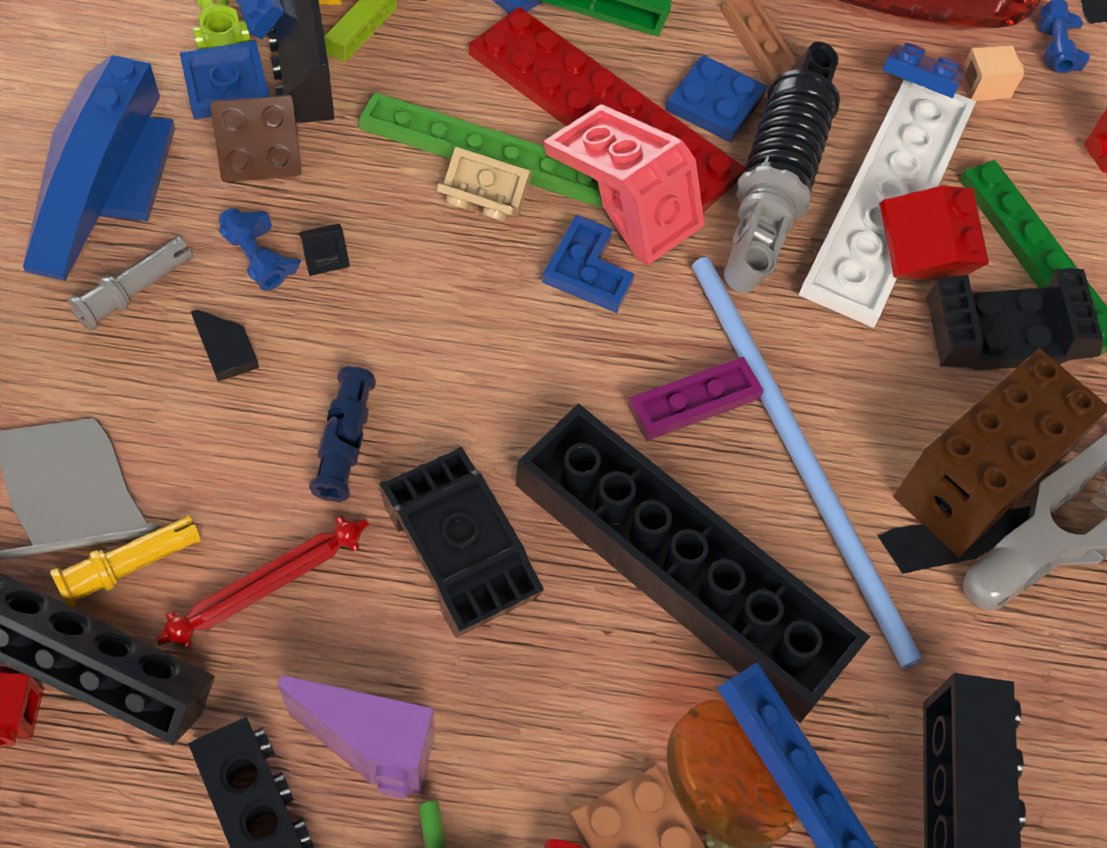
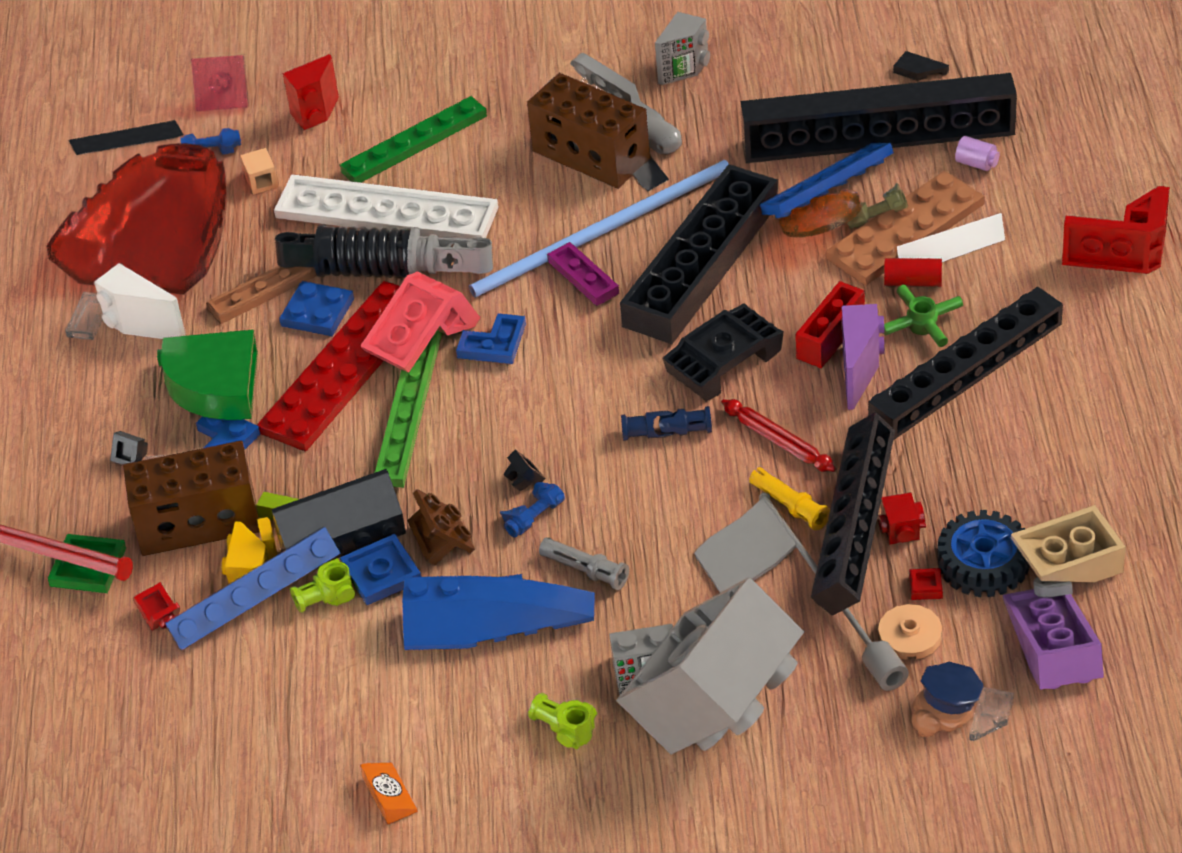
camera: 90 degrees left, 15 degrees down
(225, 345) = (617, 503): black tile -> none
(462, 714) = (823, 329): none -> red brick
(486, 183) = (444, 401): tan bracket -> none
(912, 65) = (270, 200): blue plate -> none
(934, 233) = (426, 173): red slope -> none
(1010, 325) = (479, 139): black plate -> none

